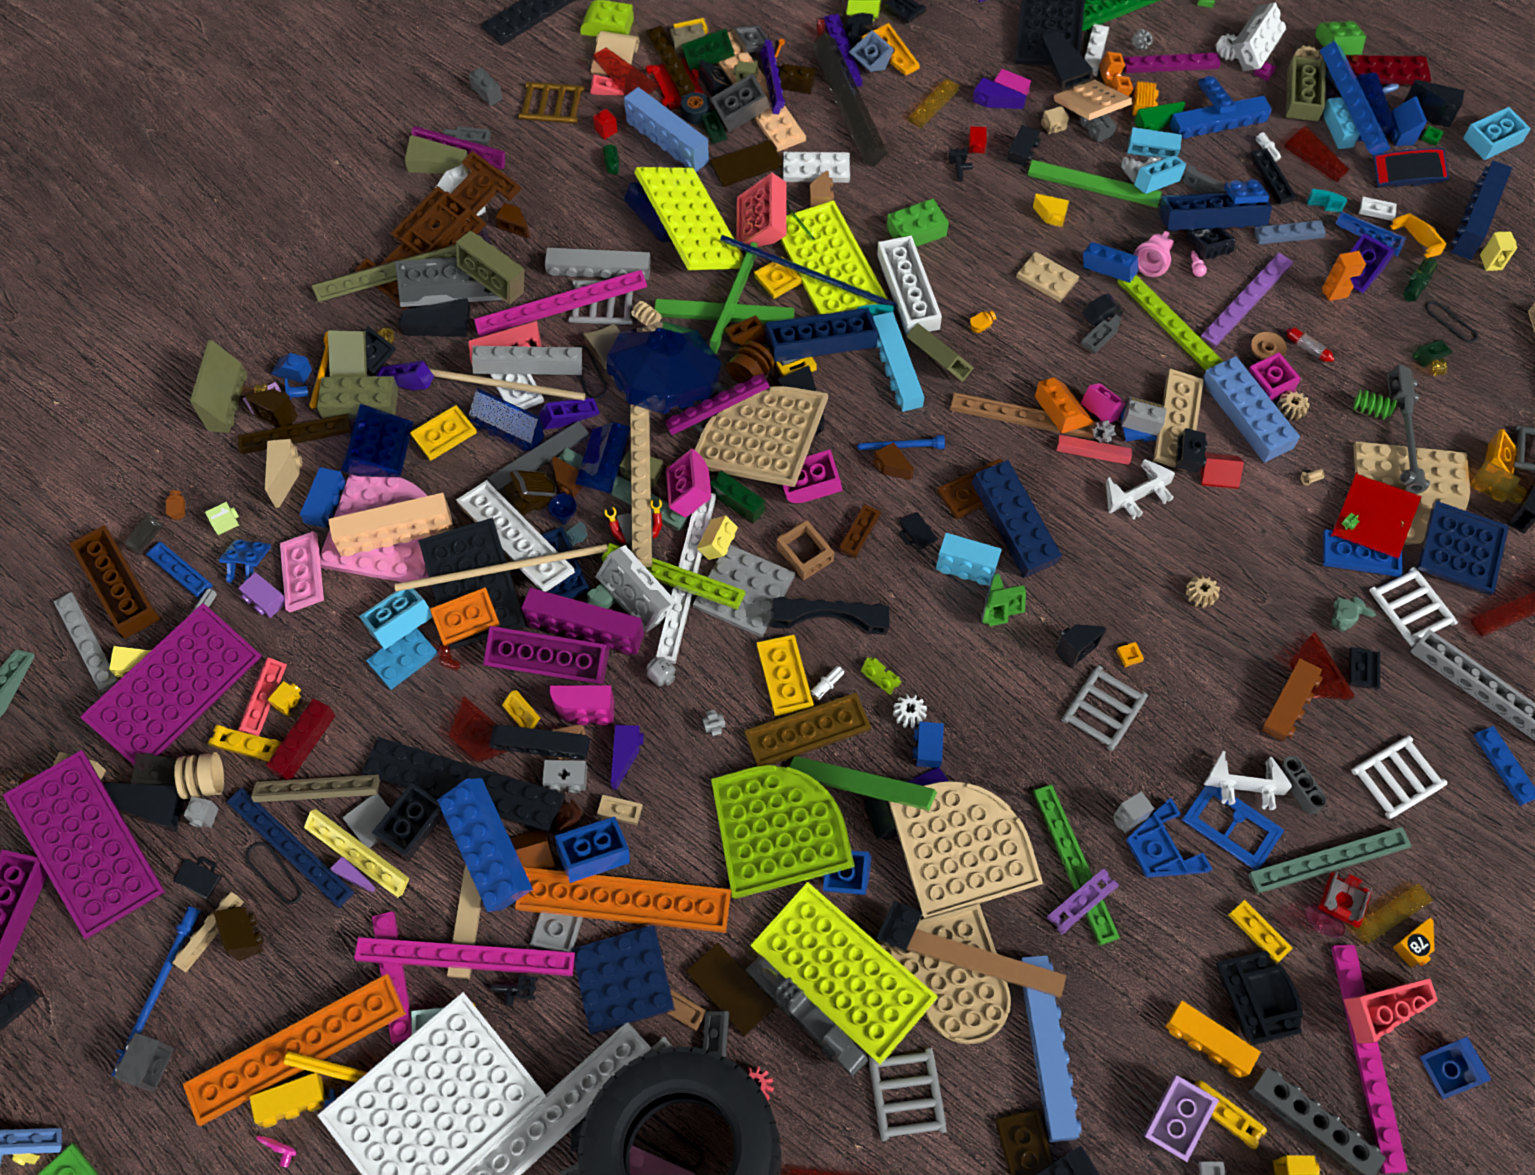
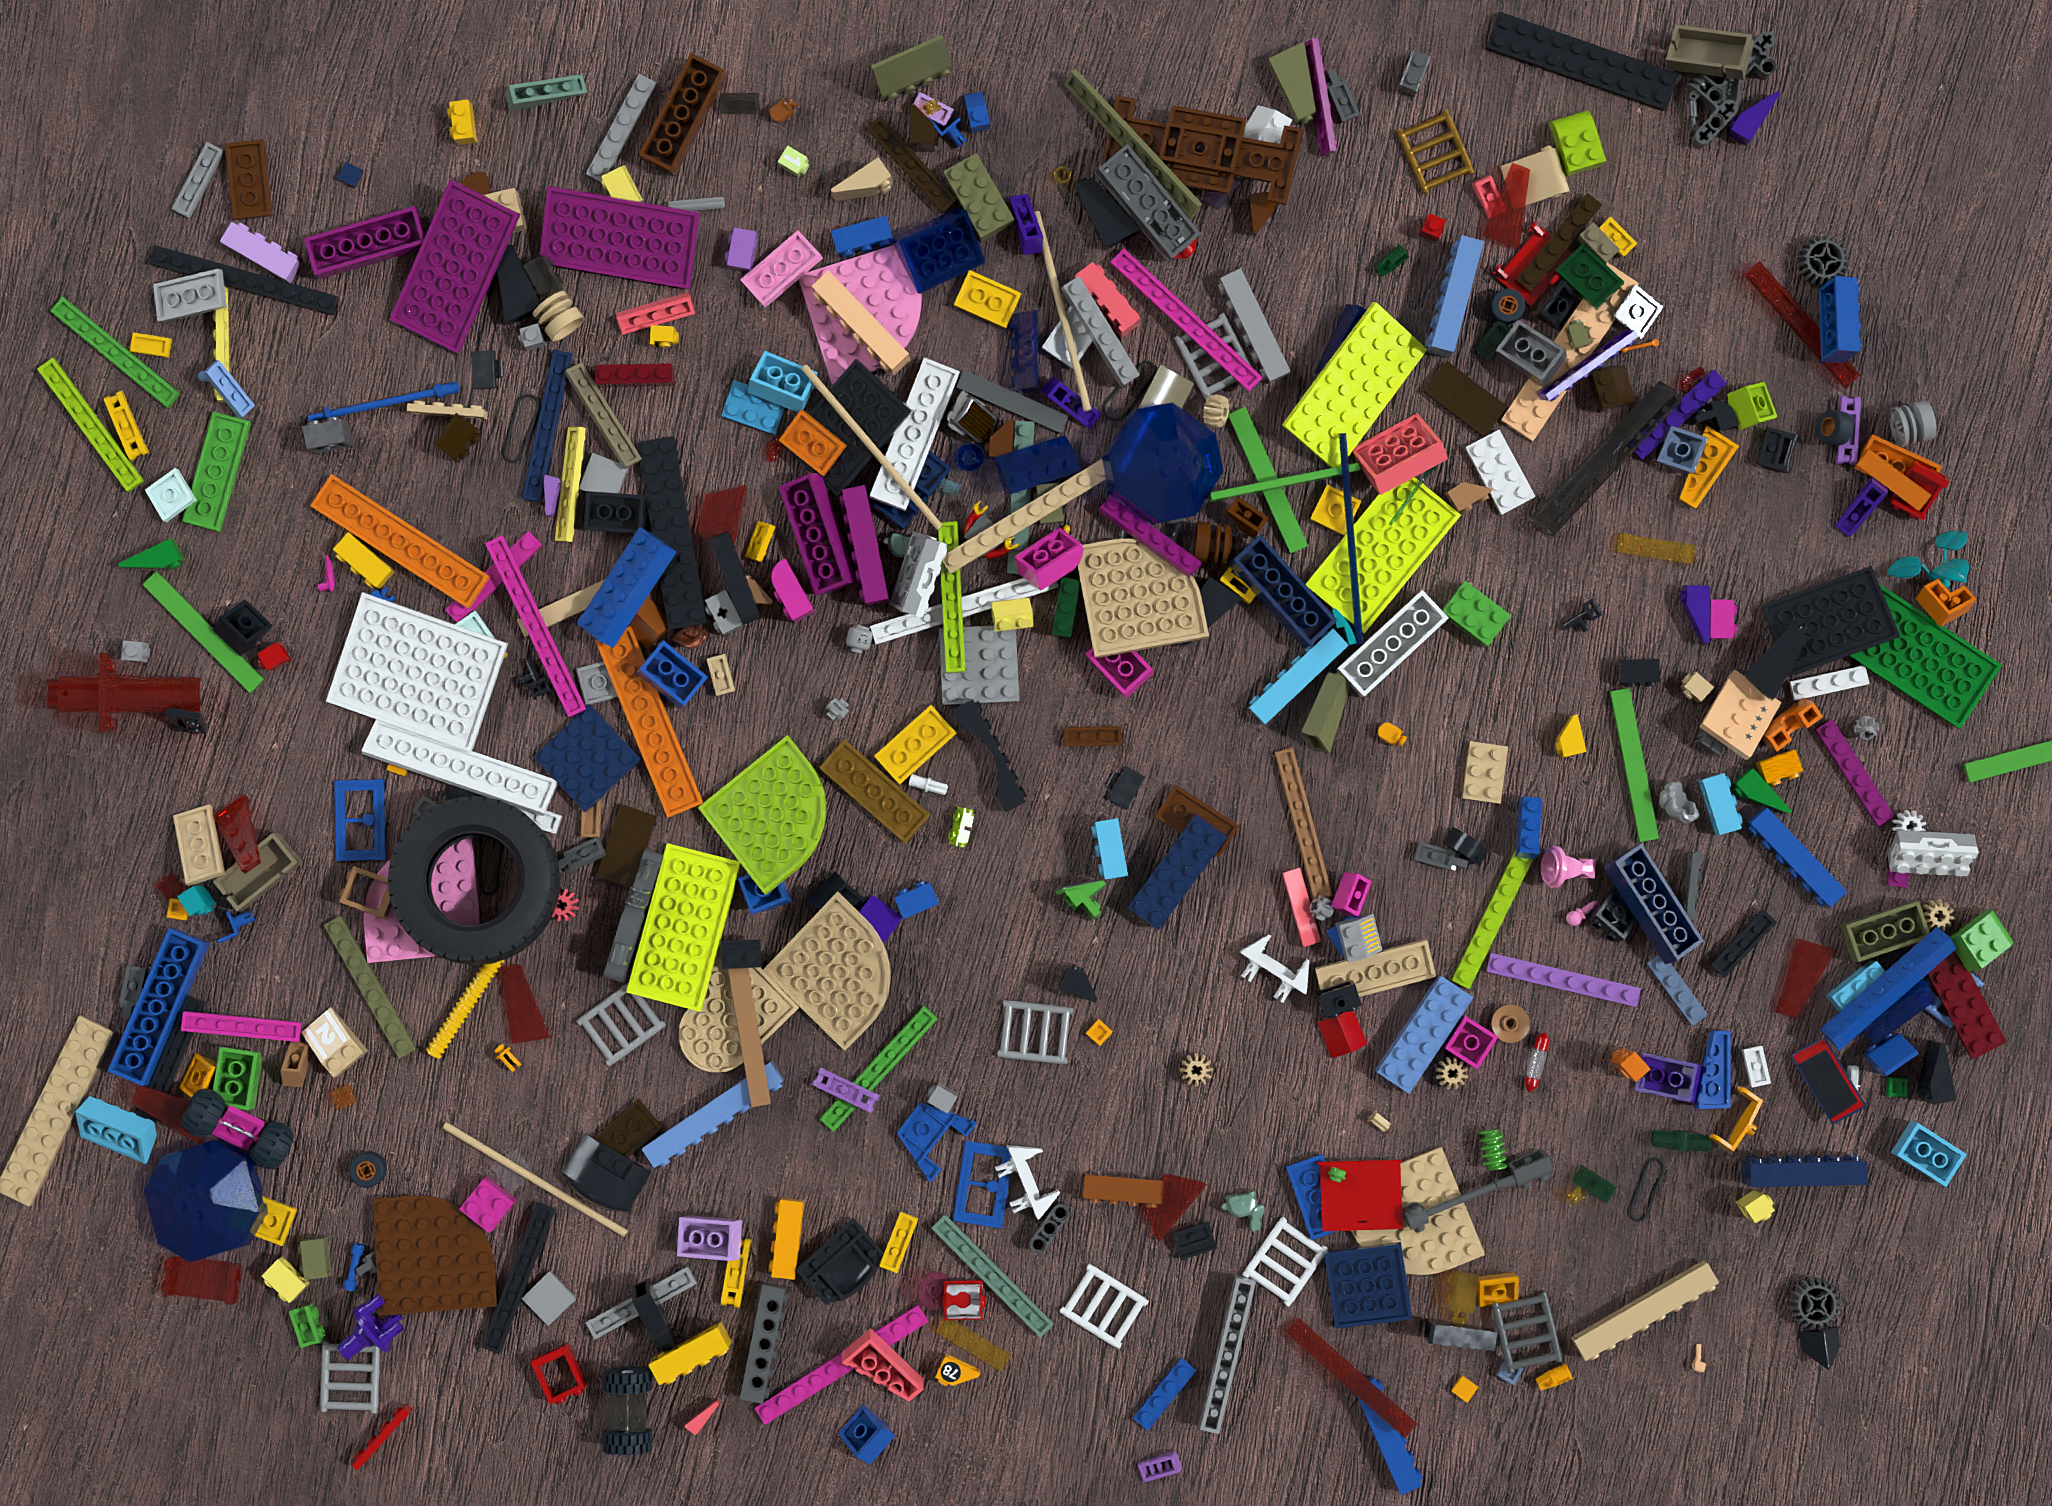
camera: 60 degrees right, 25 degrees up
(179, 569) = (727, 158): blue tile -> none
(243, 743) = (609, 329): yellow plate -> none
(246, 553) = (770, 207): blue plate -> none
(321, 373) = (1026, 128): light orange piece -> none
(323, 1067) = (398, 575): yellow axle -> none
(347, 353) = (1011, 161): olive tile -> none
(377, 350) = (1034, 173): black plate -> none
(490, 267) = (1167, 241): olive brick -> none
(625, 750) = (776, 648): dark purple slope -> none
(813, 565) = (1048, 674): medium nougat window -> none
(866, 783) = (839, 863): bright green tile -> none
(893, 462) = (1181, 728): reddish brown slope -> none
(909, 704) = (941, 874): white gear -> none
(937, 442) = (1227, 758): blue piece -> none
(977, 139) = (1623, 619): red brick -> none
(1061, 405) = (1330, 858): orange slope -> none
(1160, 174) = (1672, 829): medium azure brick -> none
(1217, 94) = (1822, 841): blue plate -> none
(1246, 192) = (1688, 926): blue plate -> none
(1264, 142) = (1783, 923): white axle -> none
(1330, 200) = (1739, 1015): teal slope -> none

